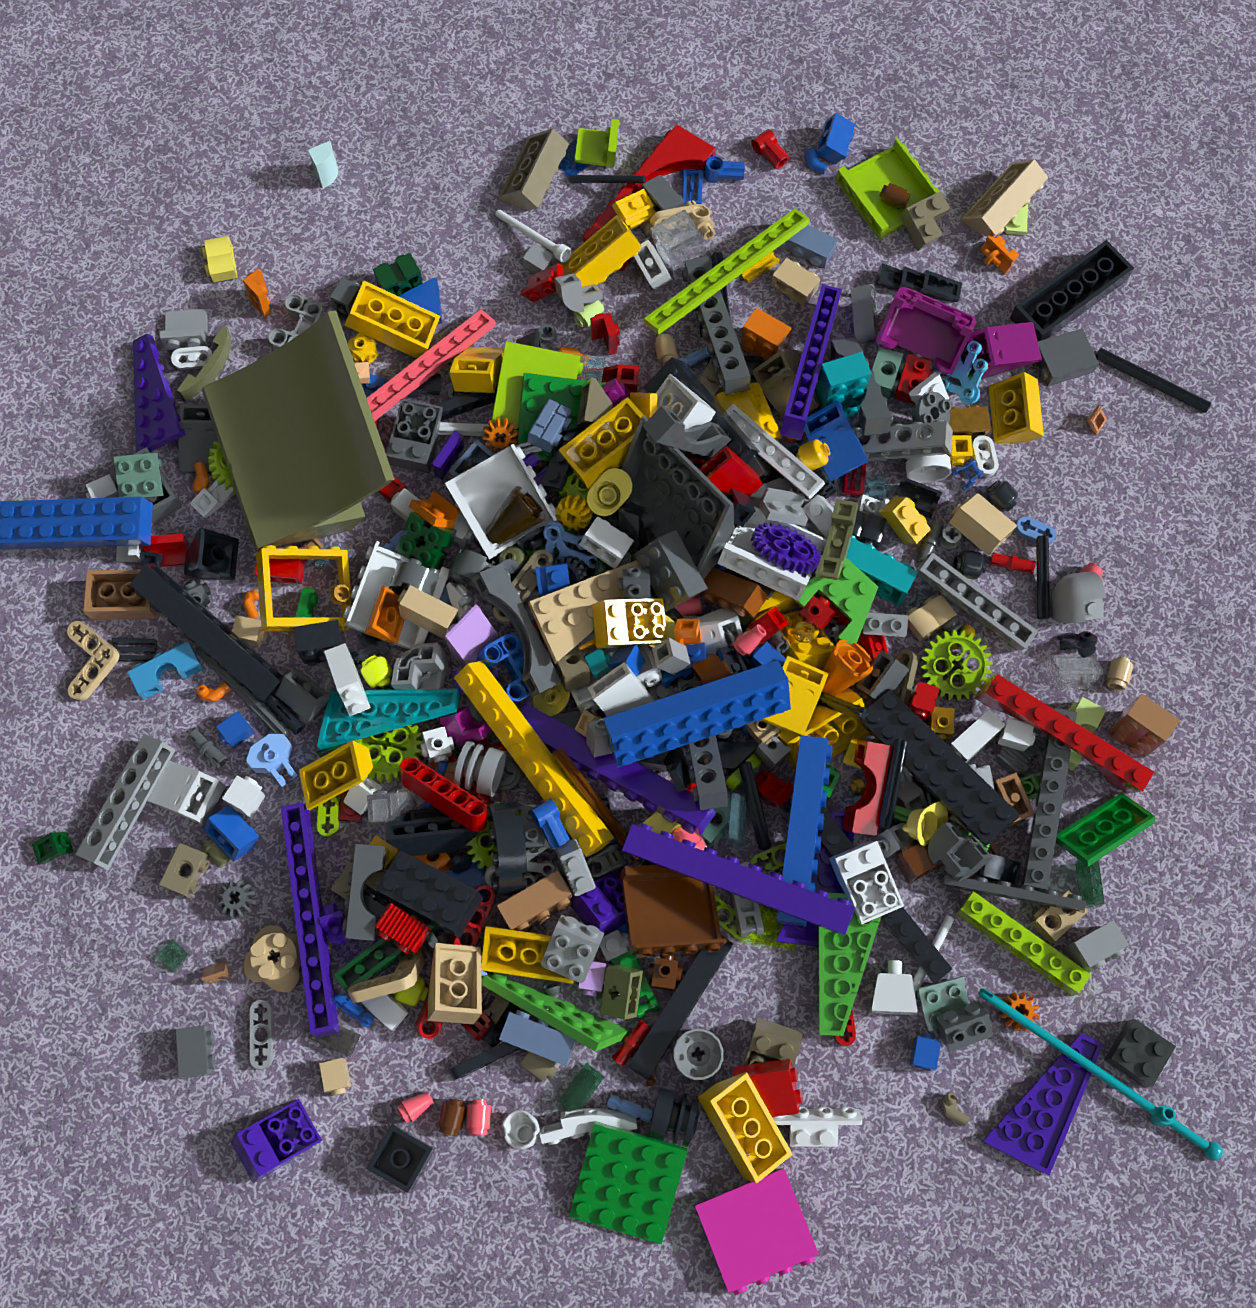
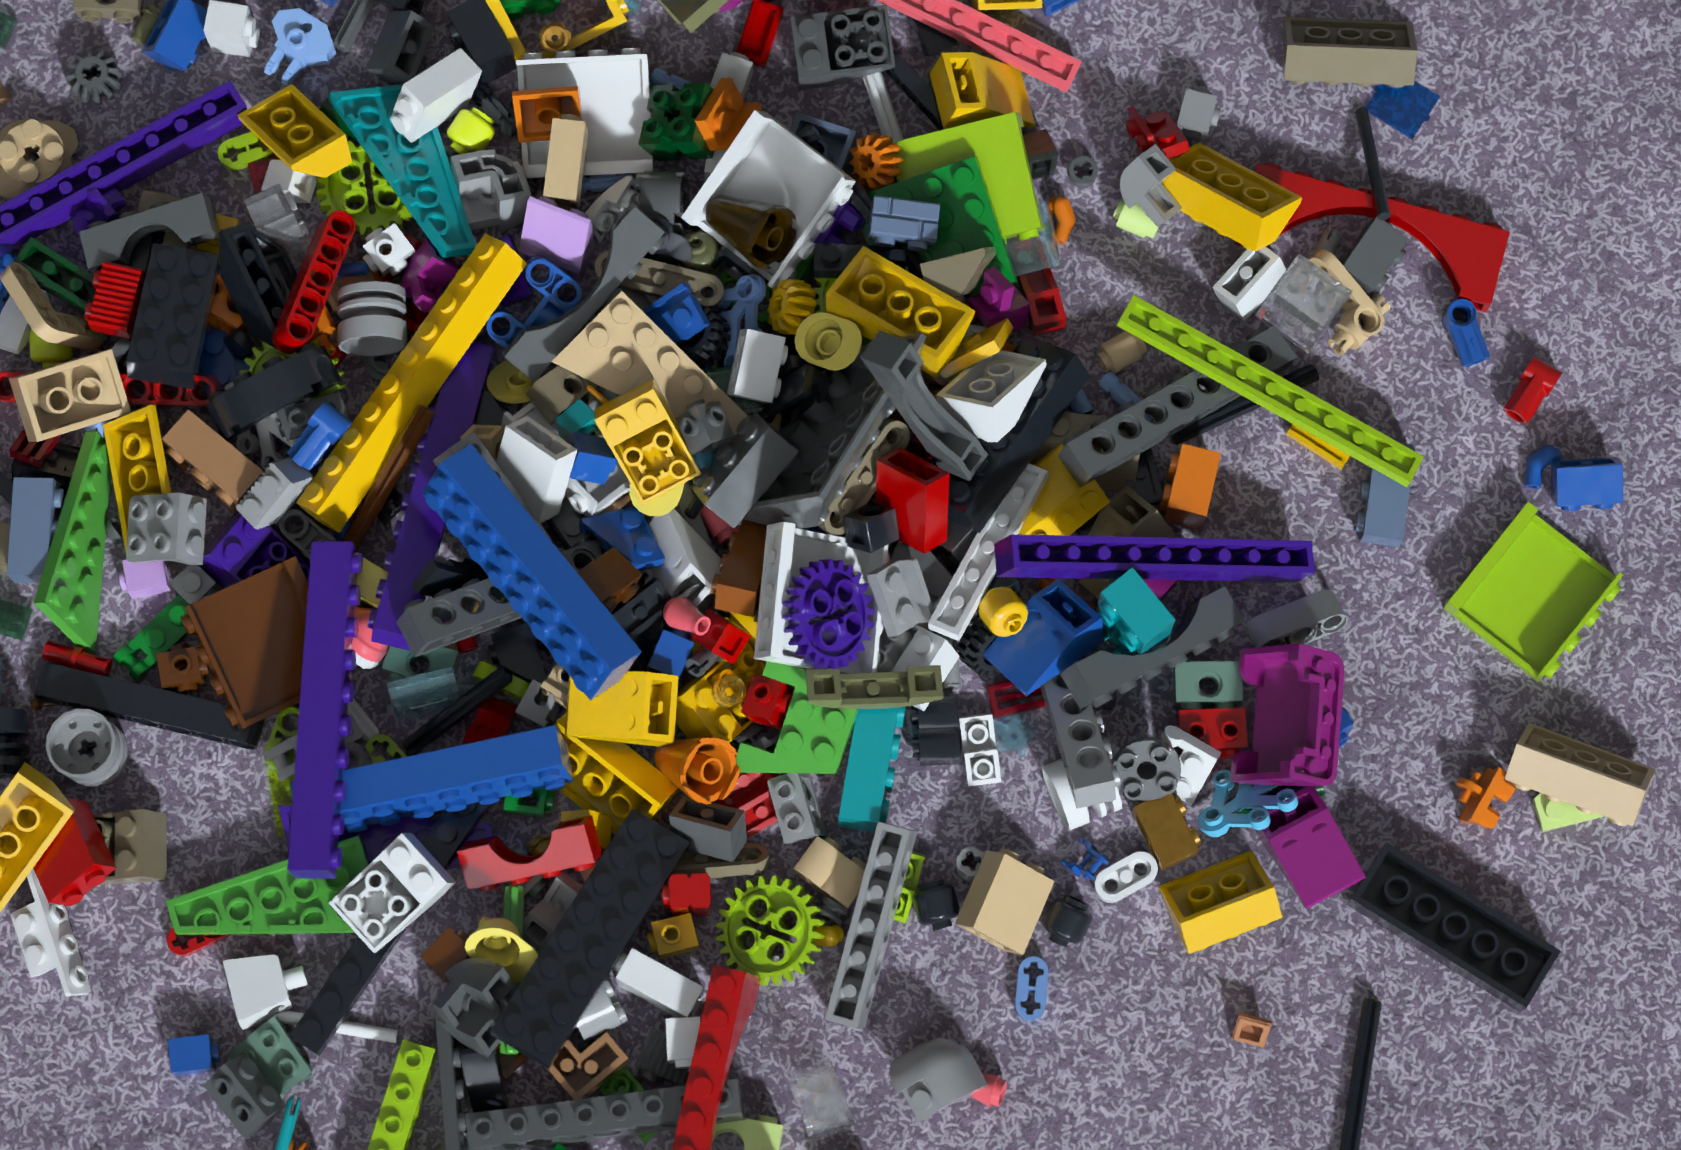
camera: 70 degrees right, 5 degrees up
(294, 724) = (367, 36): black pin -> none
(415, 575) = (608, 128): dark grey brick -> none
(448, 455) = (829, 103): dark purple plate -> none
(560, 252) = (1216, 140): white piece -> none
(597, 146) = (1429, 128): lime bracket -> none
(604, 327) = (1106, 260): red bracket -> none
(621, 992) = (135, 619): olive brick -> none
(635, 209) = (1329, 222): yellow plate -> none
(671, 656) = (616, 514): light grey brick -> none
(687, 631) = (666, 524): orange panel -> none
(692, 172) = (1418, 309): blue tile -> none
(795, 281) = (1308, 502): tan brick -> none
(842, 706) = (634, 778): axle -> none
(892, 783) = (544, 883): black axle -> none
(893, 840) = (466, 913): light grey brick -> none
(894, 196) = (1520, 605): reddish brown brick -> none
(905, 520) = (967, 785): yellow brick -> none
(921, 220) = (1492, 654): dark tan brick -> none
(924, 497) = (1017, 795): black hinge -> none
(926, 283) = (1384, 691): black slope -> none
(930, 542) = (952, 838): dark grey pin -> none
(951, 1111) = (130, 1115): dark tan arm -> none
(961, 450) = (1113, 831): yellow brick -> none
(1012, 563) = (965, 969): red pin -> none
(1043, 581) = (957, 1019): black axle -> none
(1066, 357) = (1339, 948): dark grey brick -> none
(1083, 642) = (871, 1100): black plate -> none

